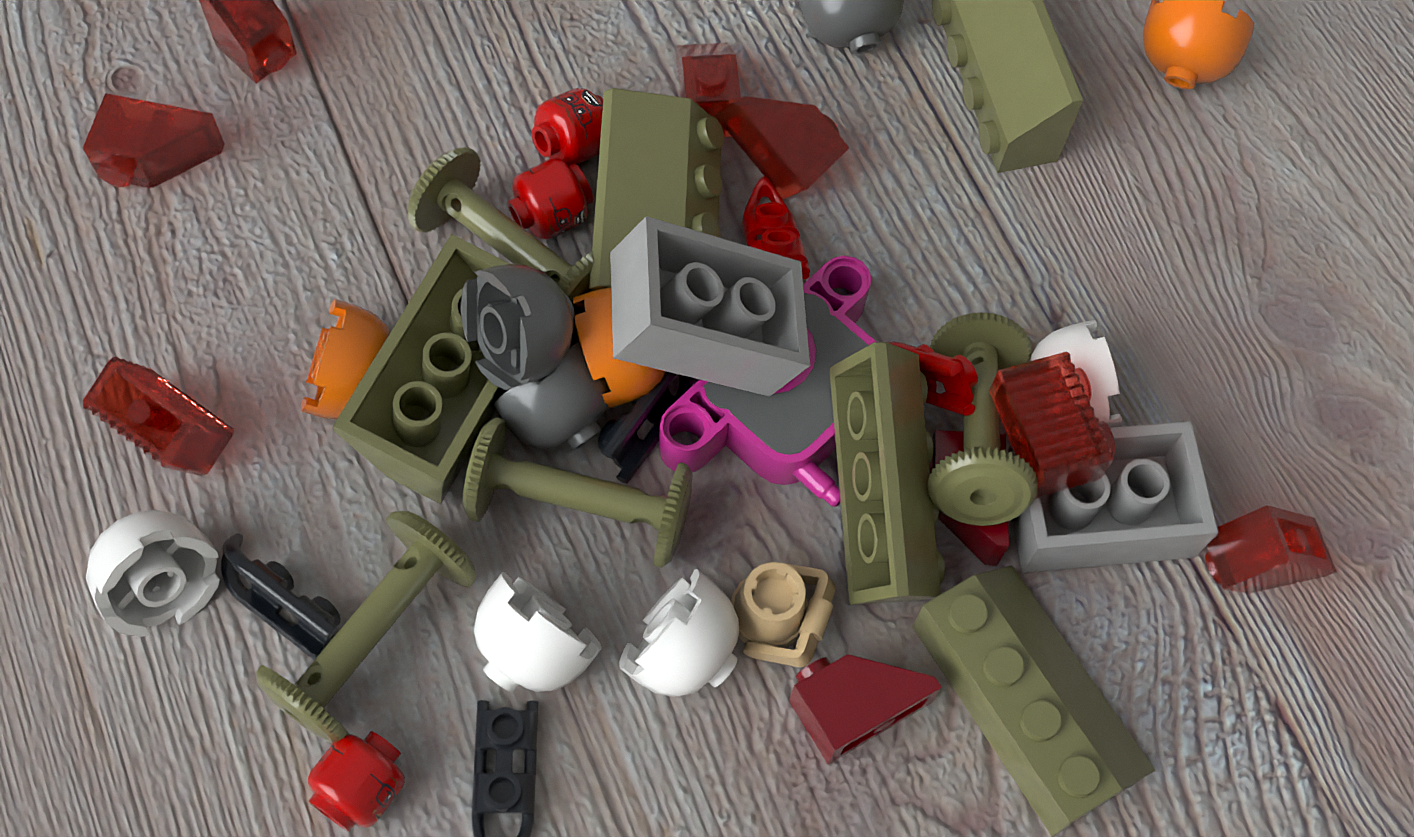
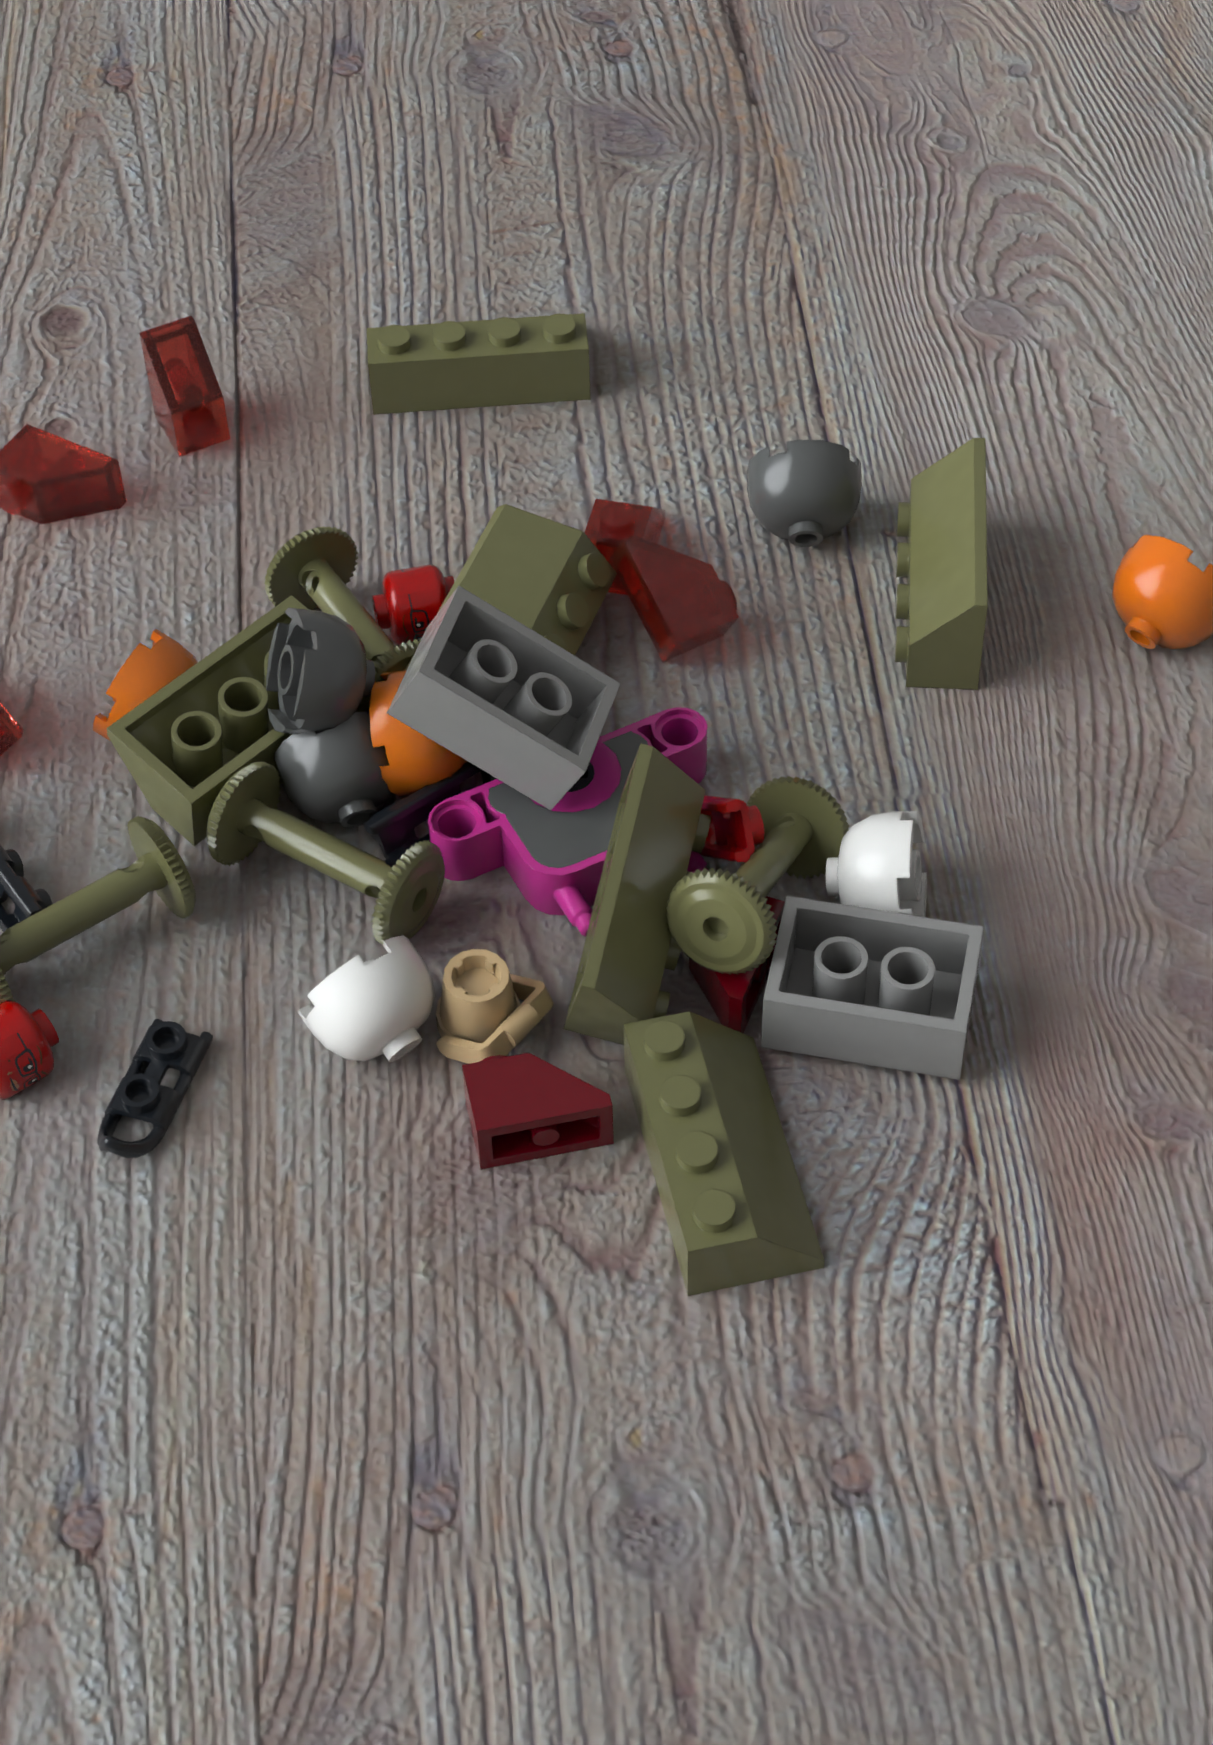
camera: 25 degrees right, 15 degrees down
(529, 638) = (221, 967): white cylinder -> none
(569, 126) = (453, 539): red head -> none
(775, 225) = (634, 668): red piece -> none
(1052, 422) = (818, 883): clear red brick -> none
(1268, 551) = (1038, 1084): clear red slope -> none

